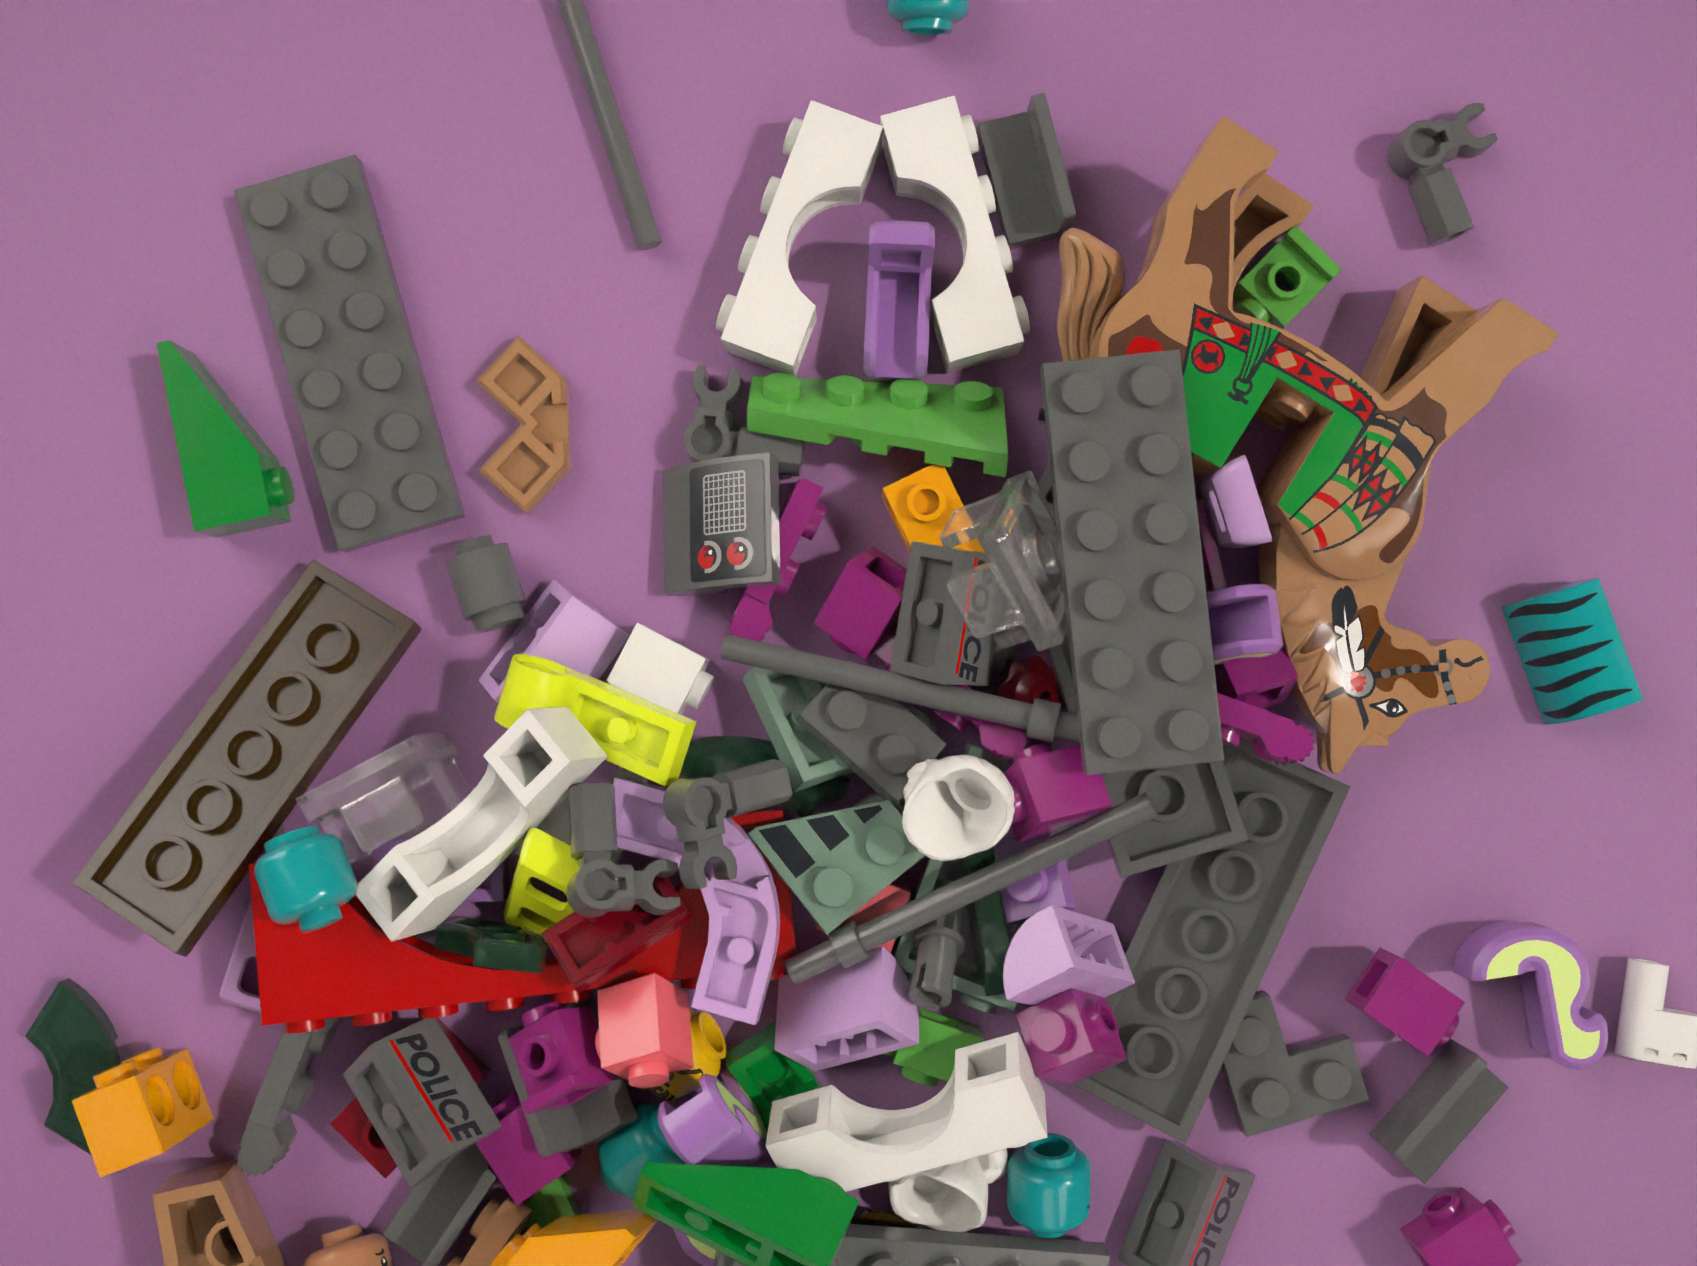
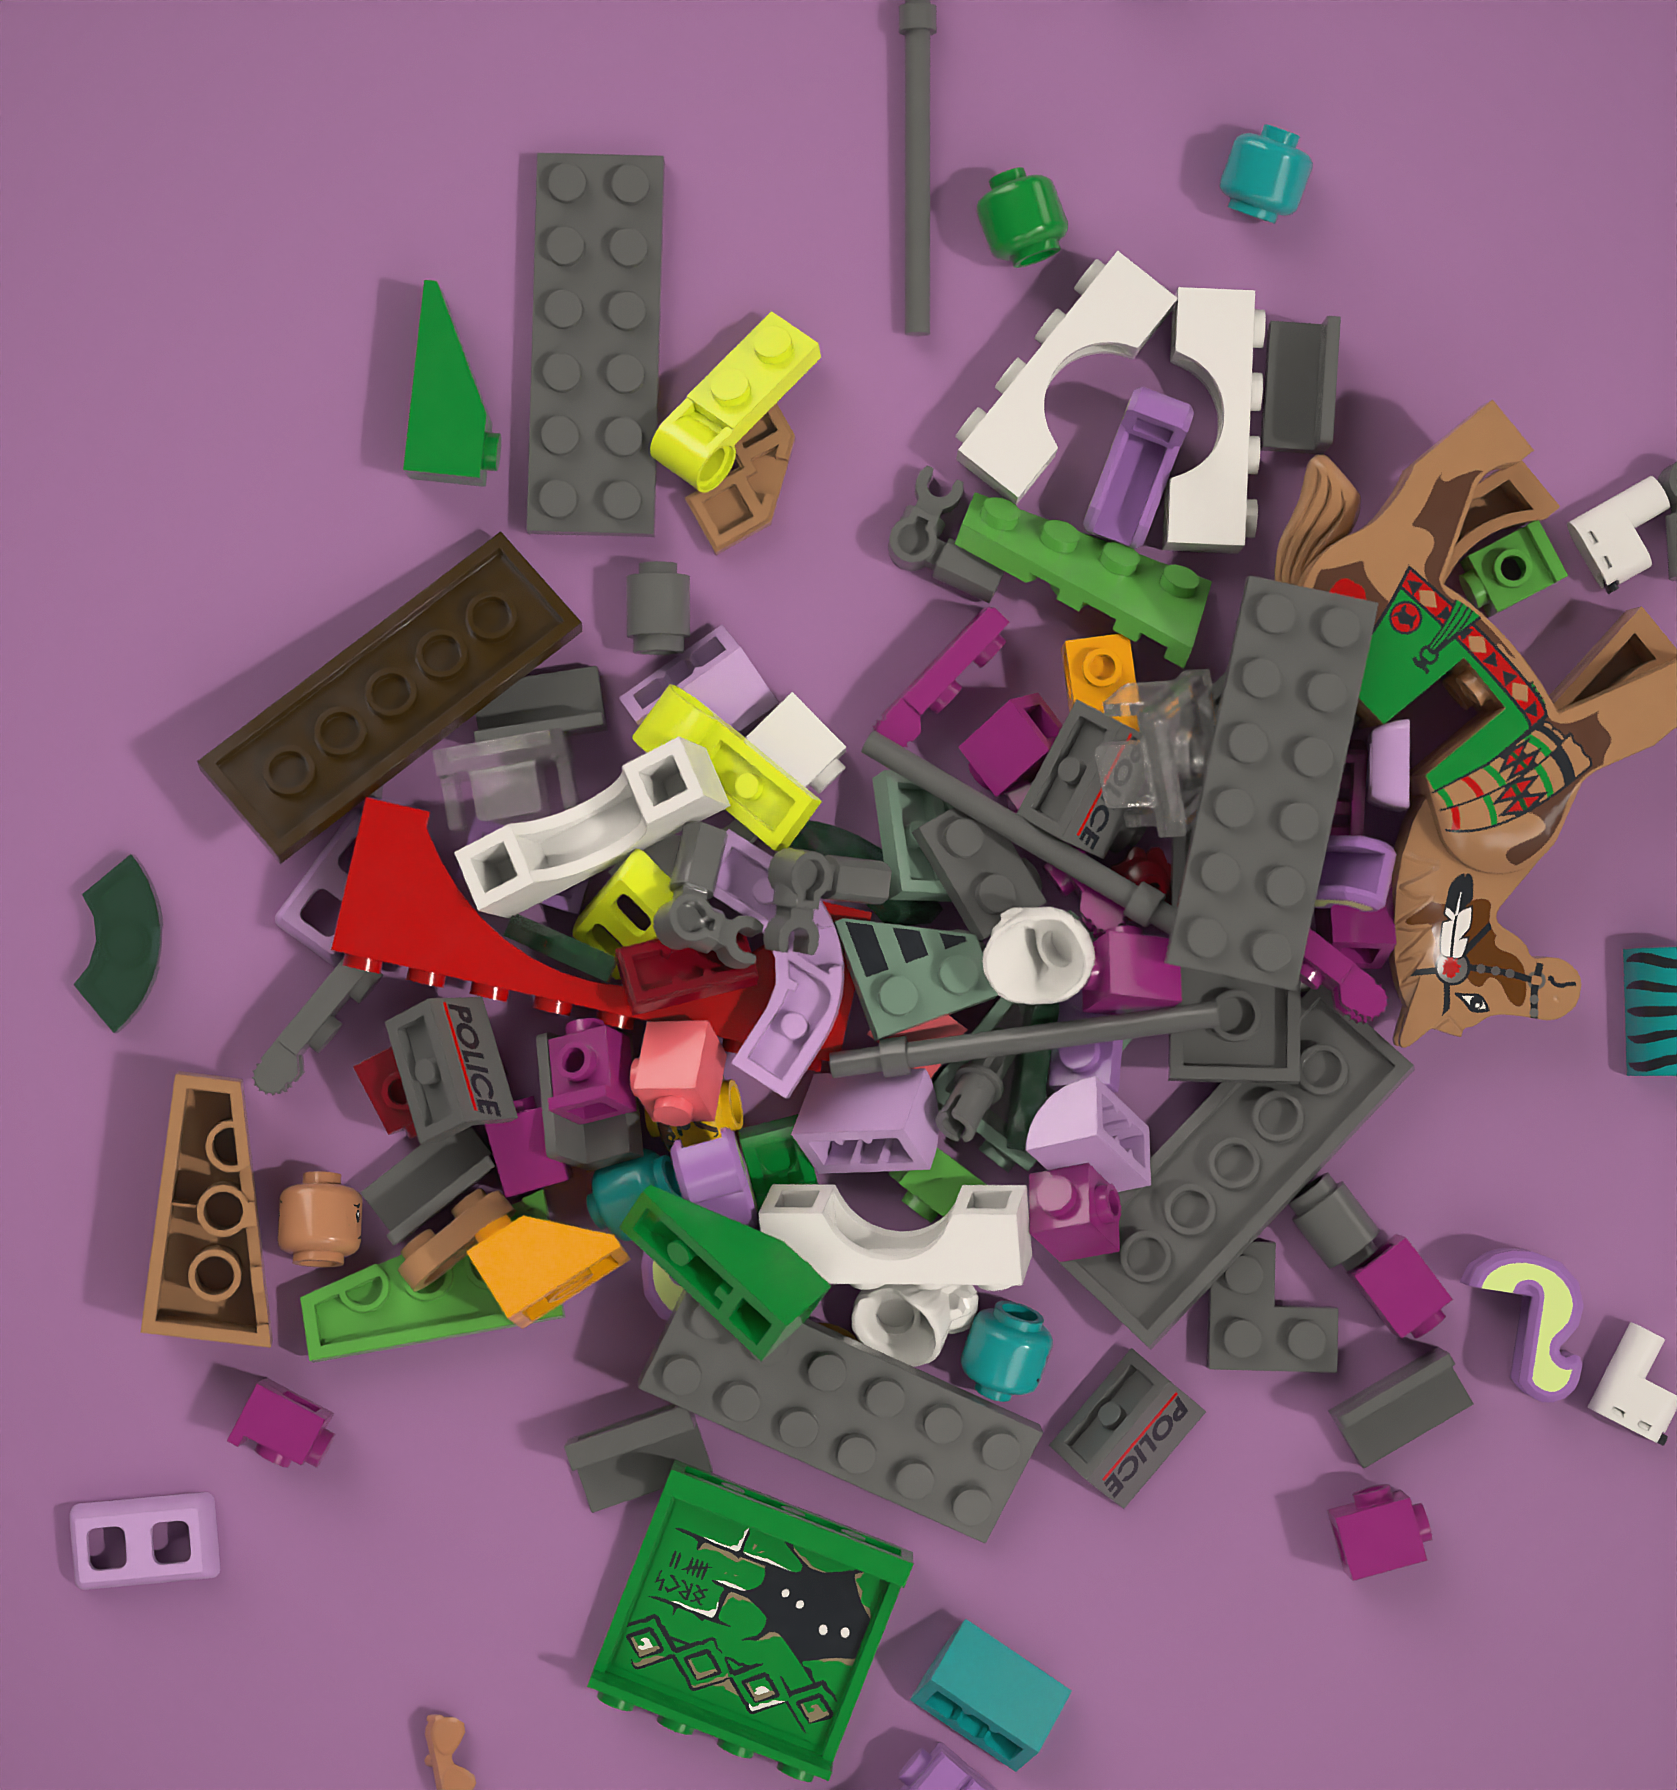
camera: 15 degrees right, 0 degrees up
(142, 1109) = (183, 993): light orange brick -> none
(305, 878) = (421, 825): teal head -> none
(413, 706) = (544, 703): none -> dark grey panel
(473, 398) = (703, 430): none -> neon yellow plate
(711, 101) = (1022, 217): none -> green head
(721, 524) = (900, 625): slope -> none
(1322, 959) = (1334, 1223): none -> dark grey brick
(1362, 222) = (1609, 537): none -> white piece

